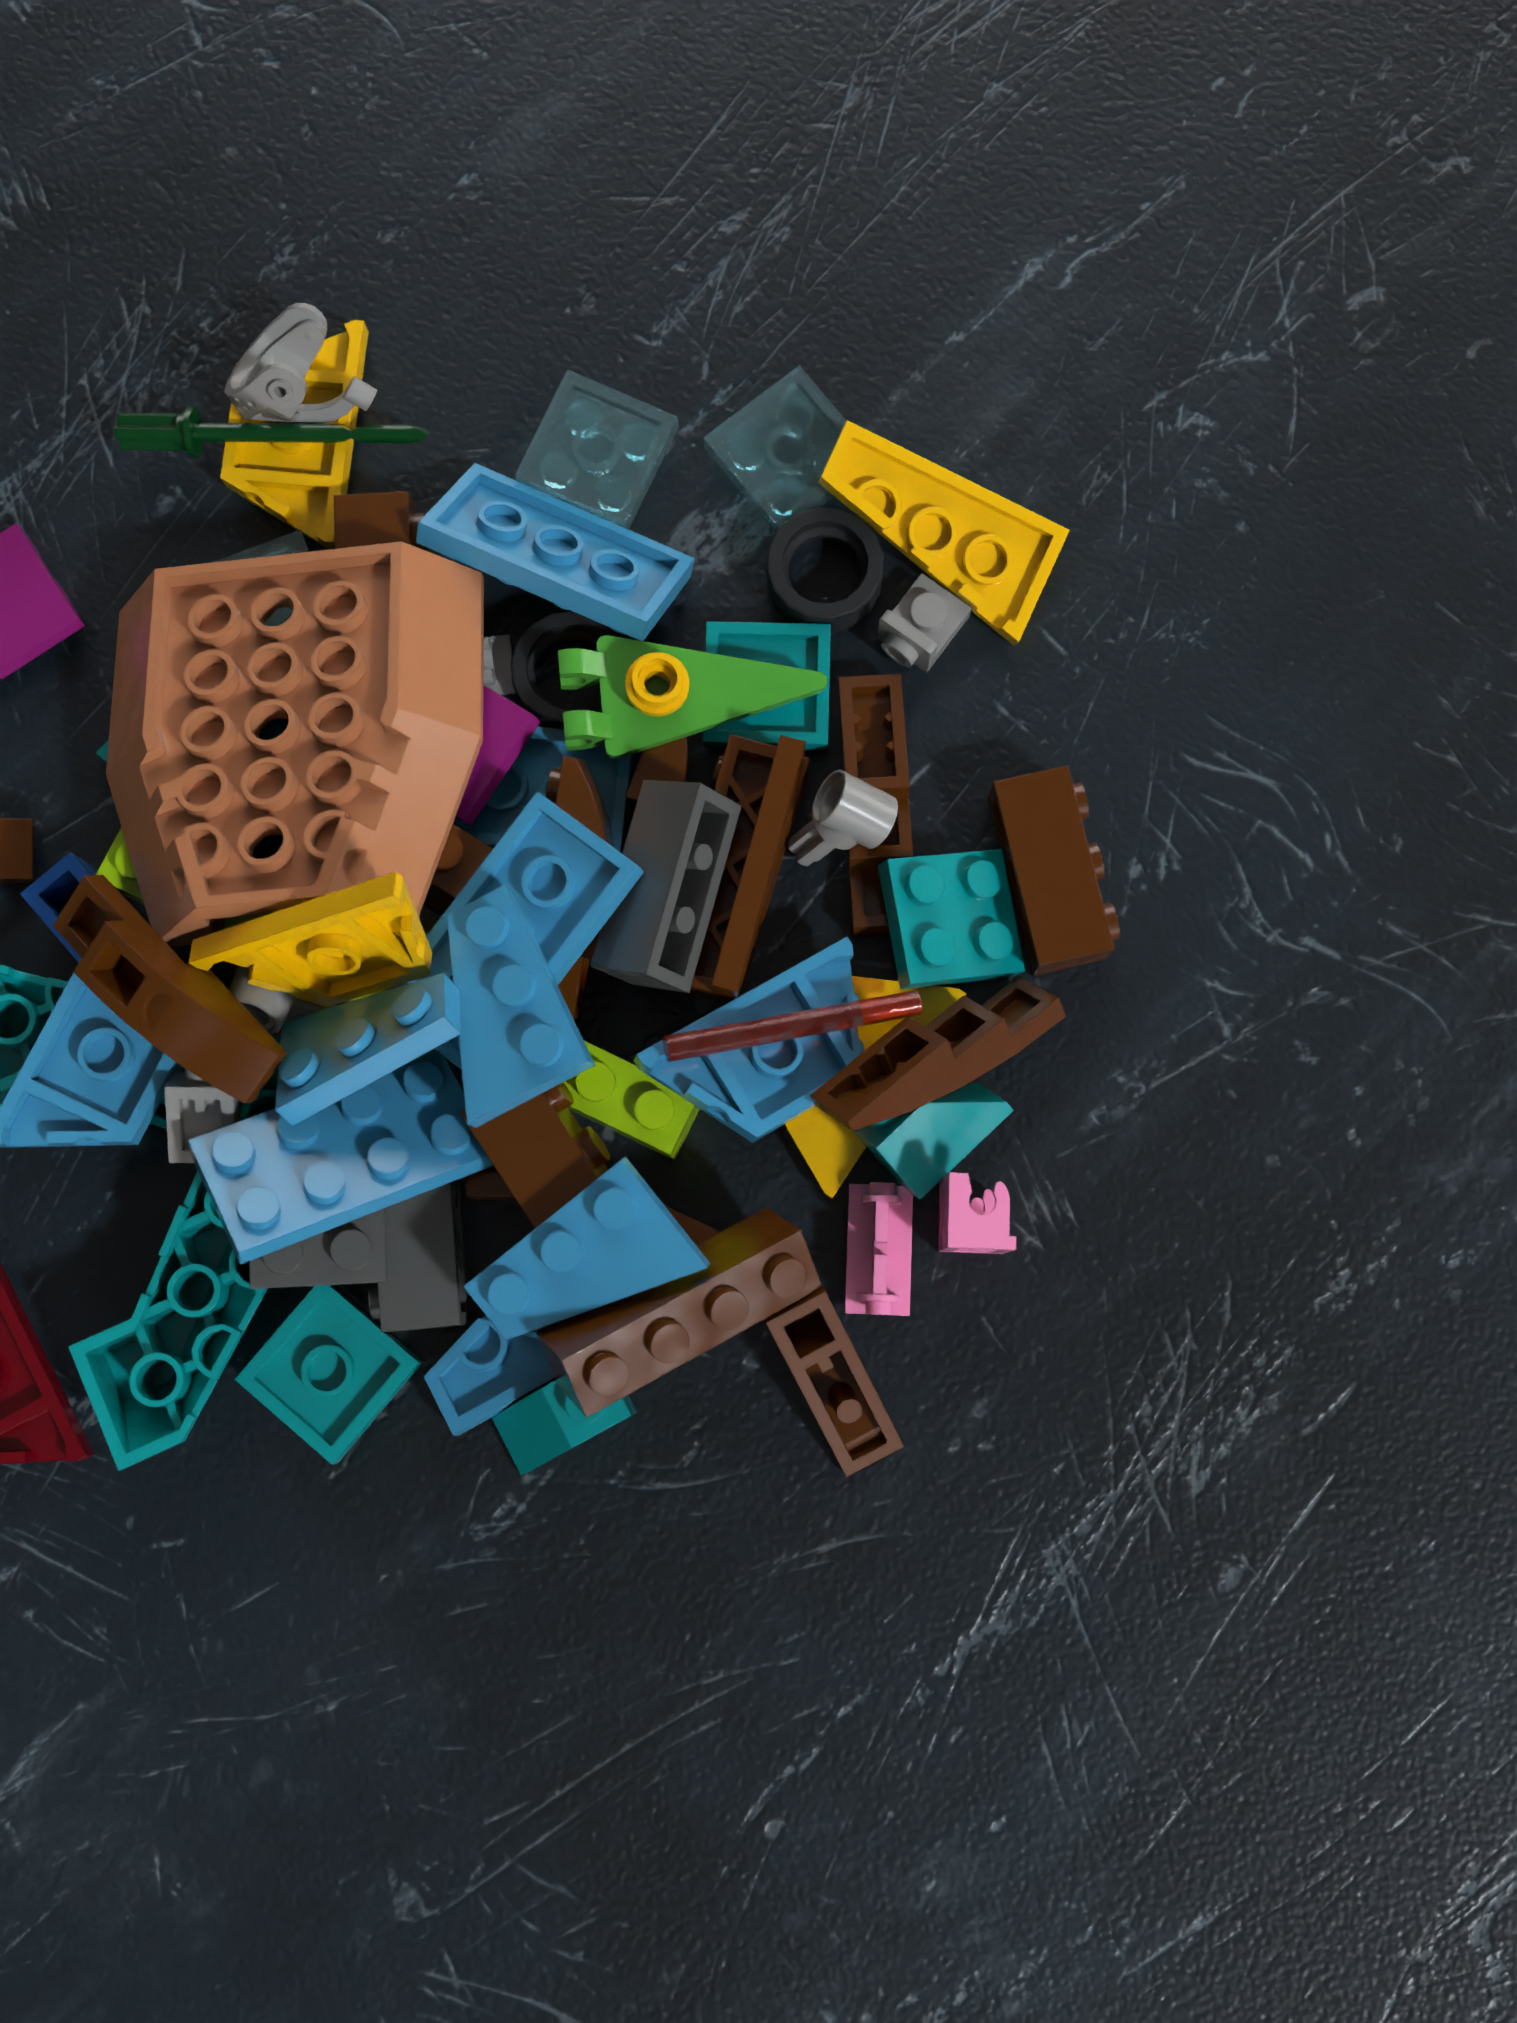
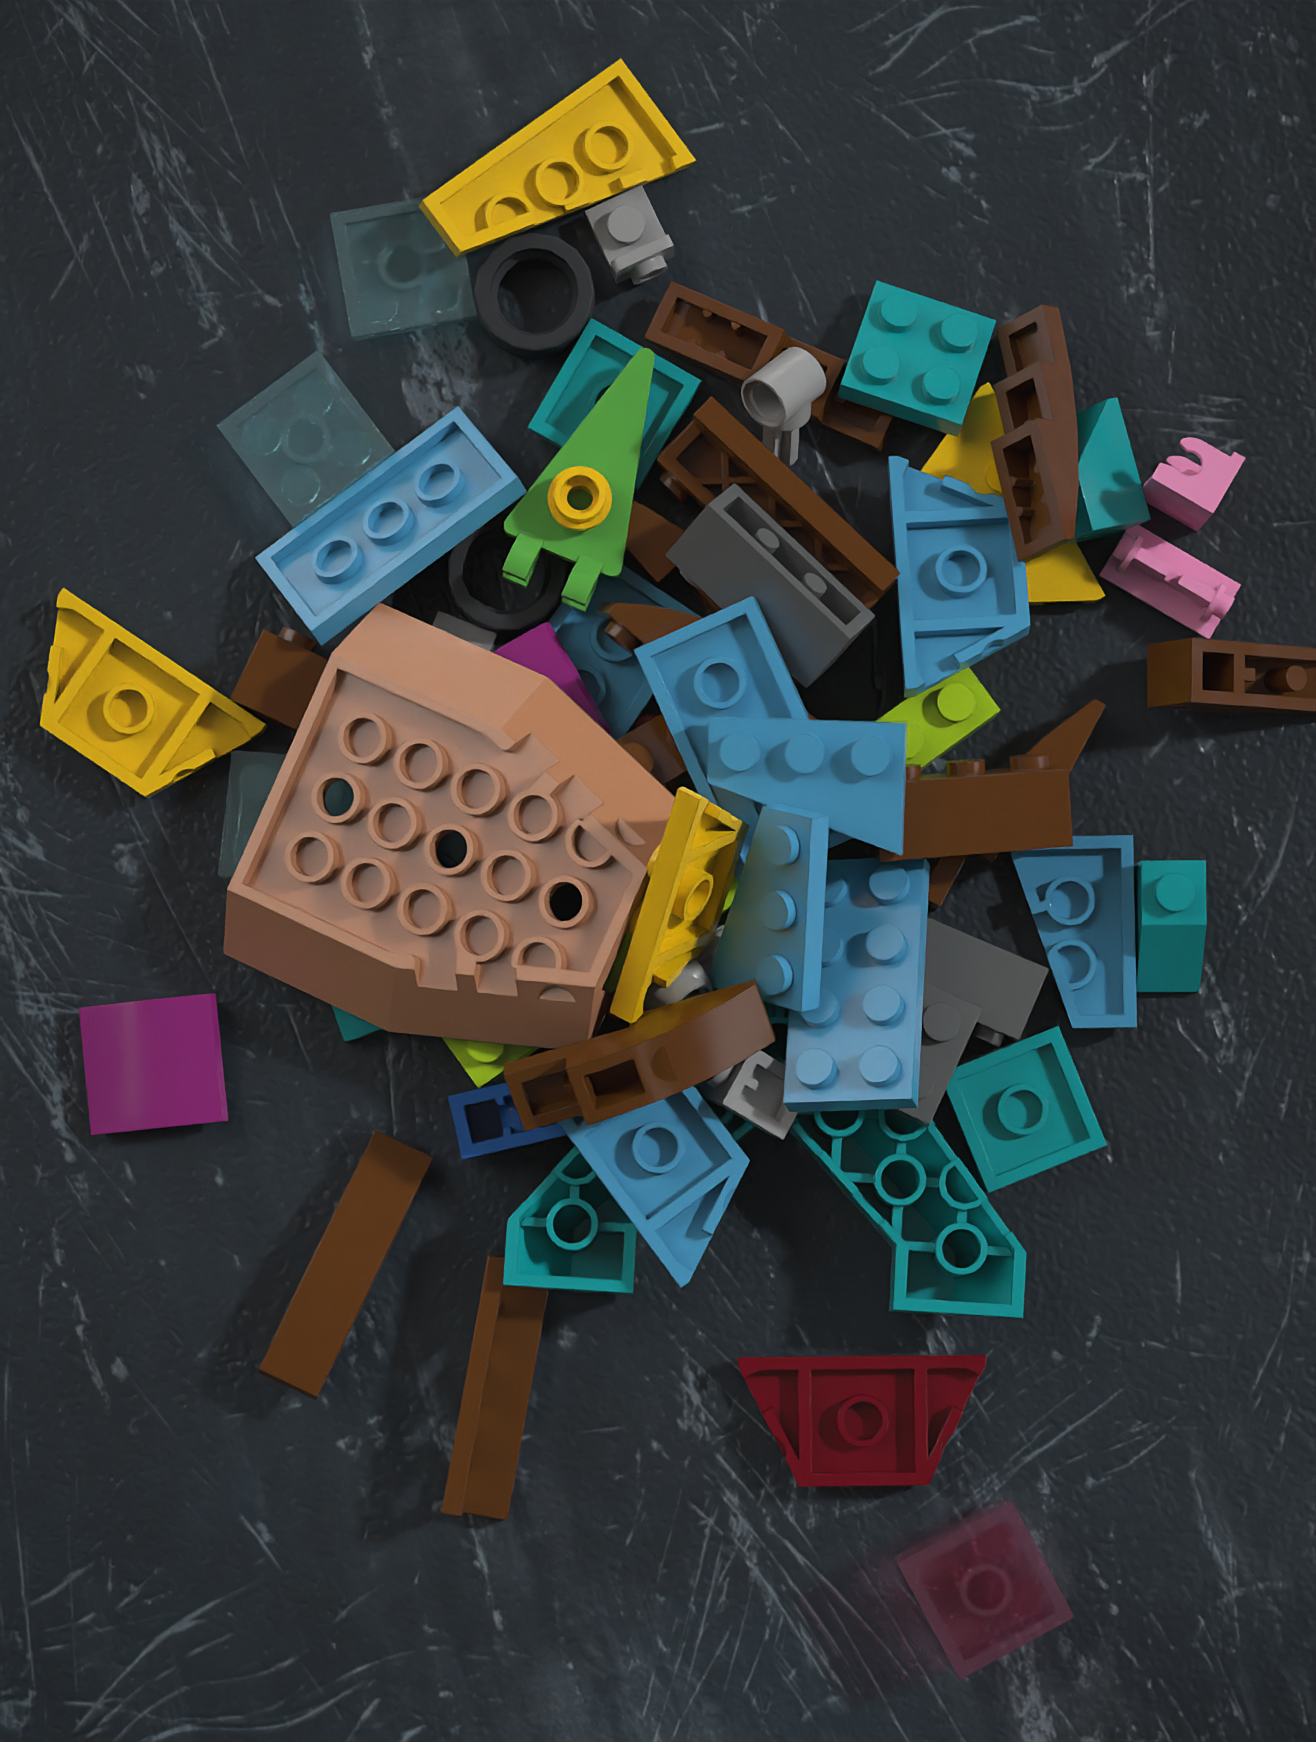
camera: 70 degrees left, 5 degrees up
(188, 433) = (84, 806): dark green piece -> none
(272, 371) = (64, 676): light grey helmet -> none
(586, 1255) = (1060, 818): dark azure wing -> none
(635, 1340) = (1142, 768): reddish brown brick -> none
(791, 1025) = (948, 544): clear red bar -> none
(1053, 870) = (922, 246): reddish brown brick -> none

